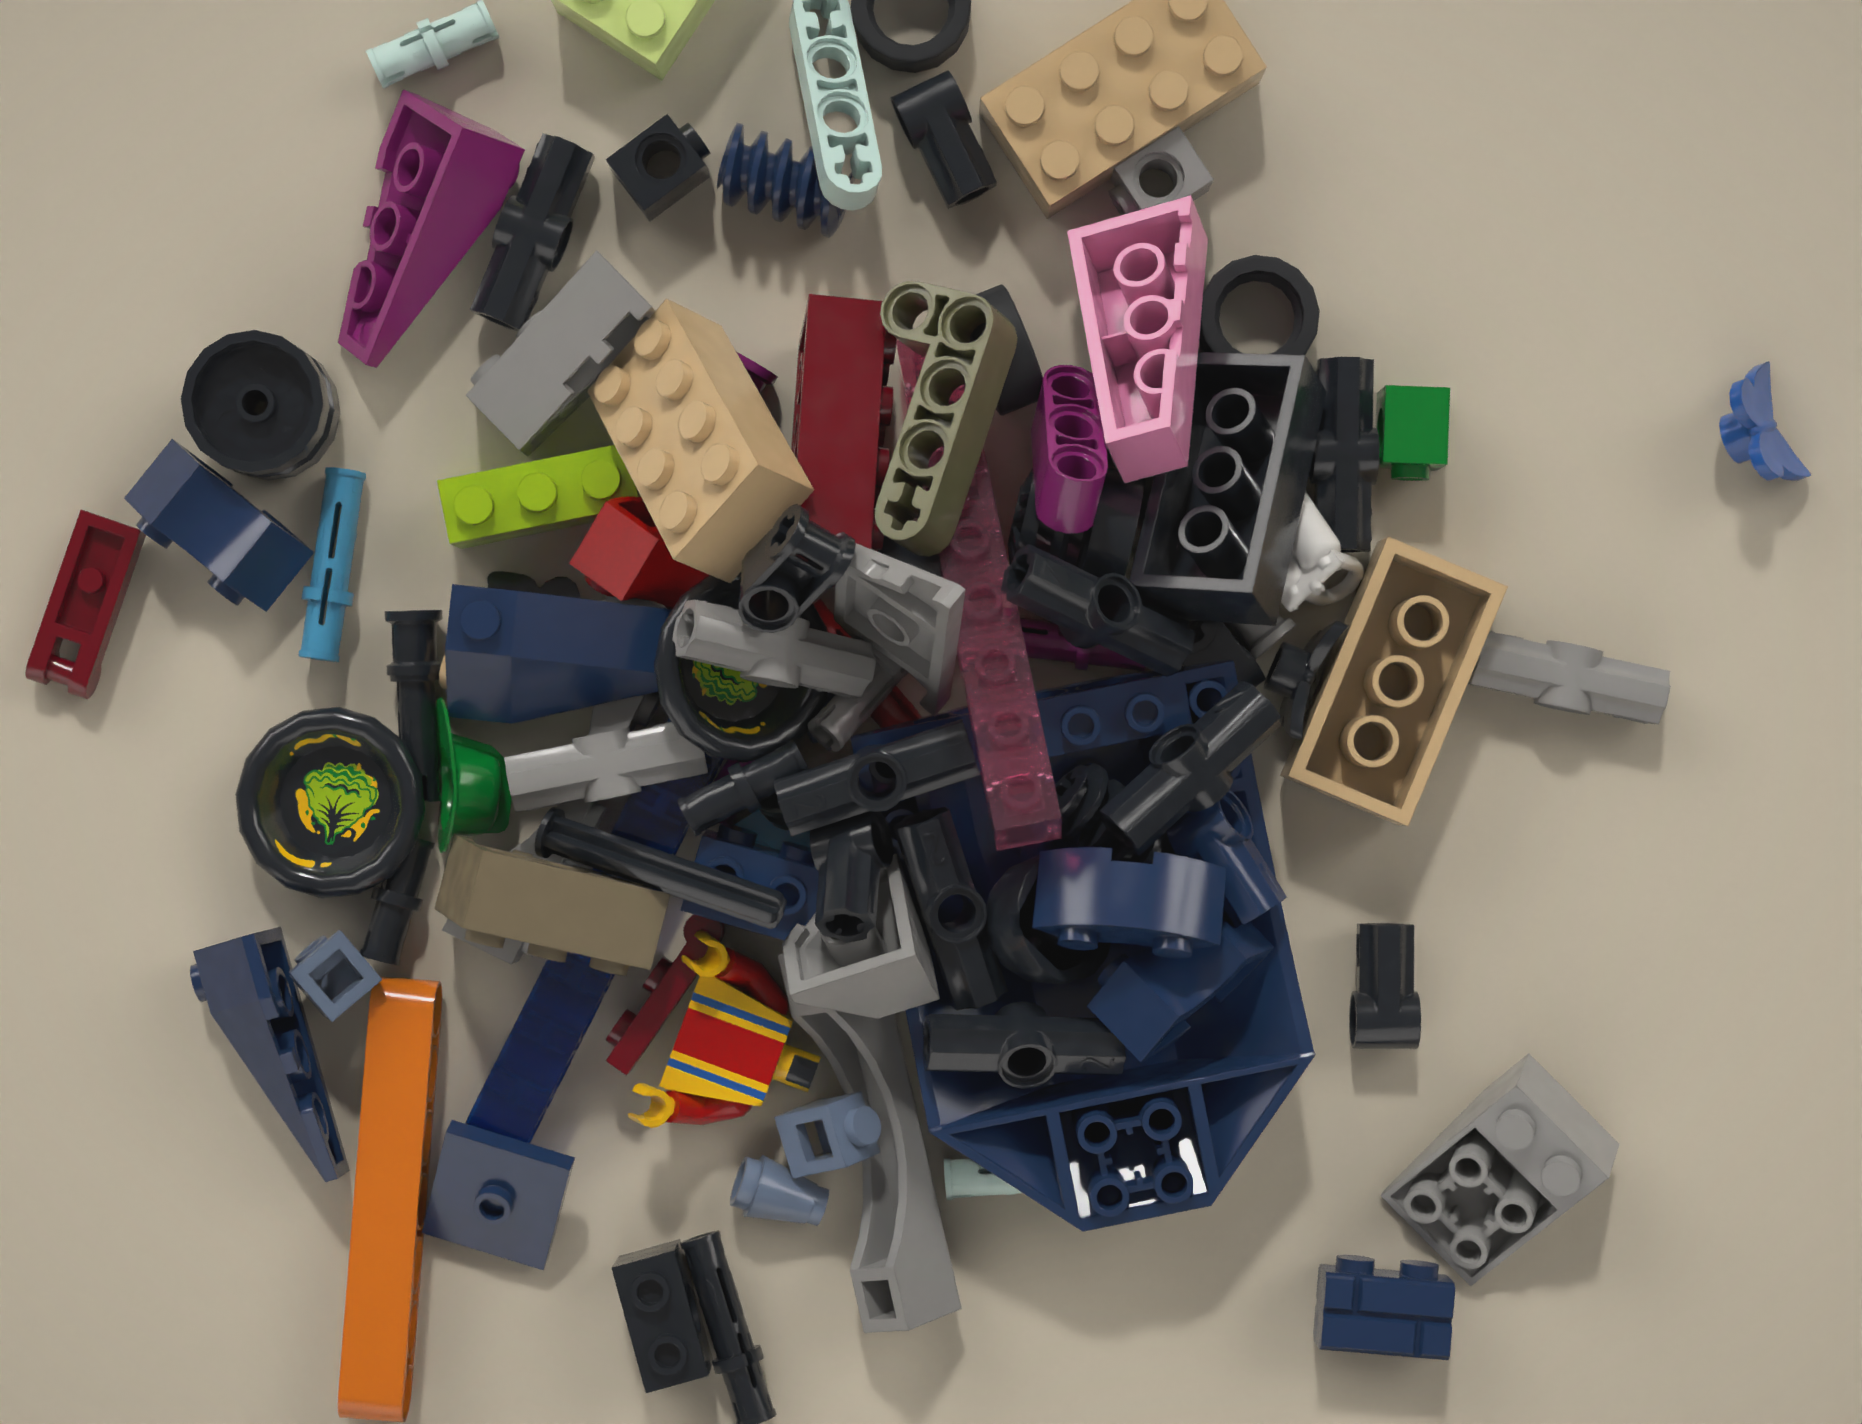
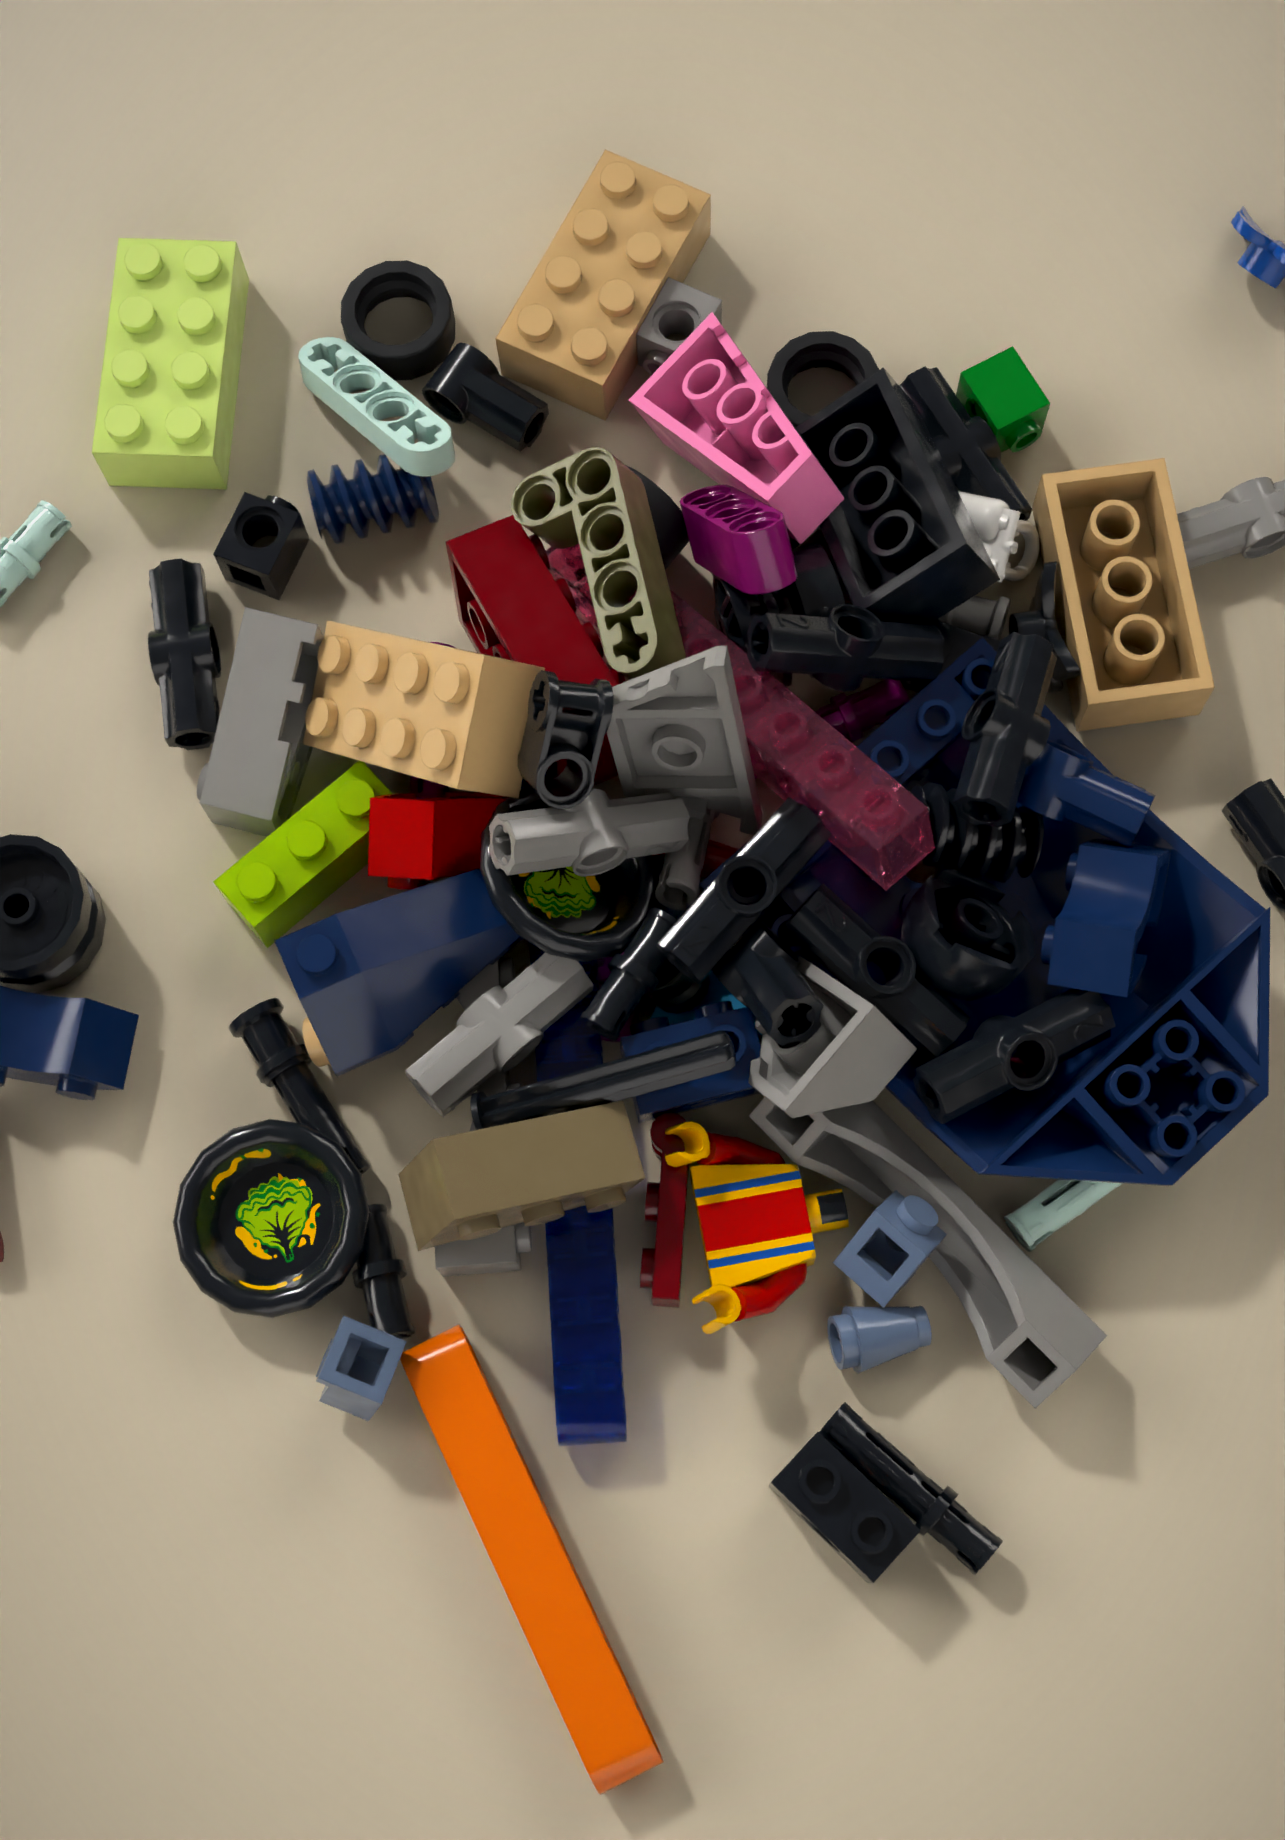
camera: 25 degrees left, 15 degrees down
(267, 1026) = (297, 1438): dark blue wedge -> none
(321, 641) = (183, 1085): dark azure pin -> none
(434, 203) = (85, 662): magenta wedge -> none
(472, 785) = (384, 1125): green piece -> none
(497, 1194) = (625, 1486): dark blue plate -> none
(1157, 905) = (1008, 874): dark blue brick -> none

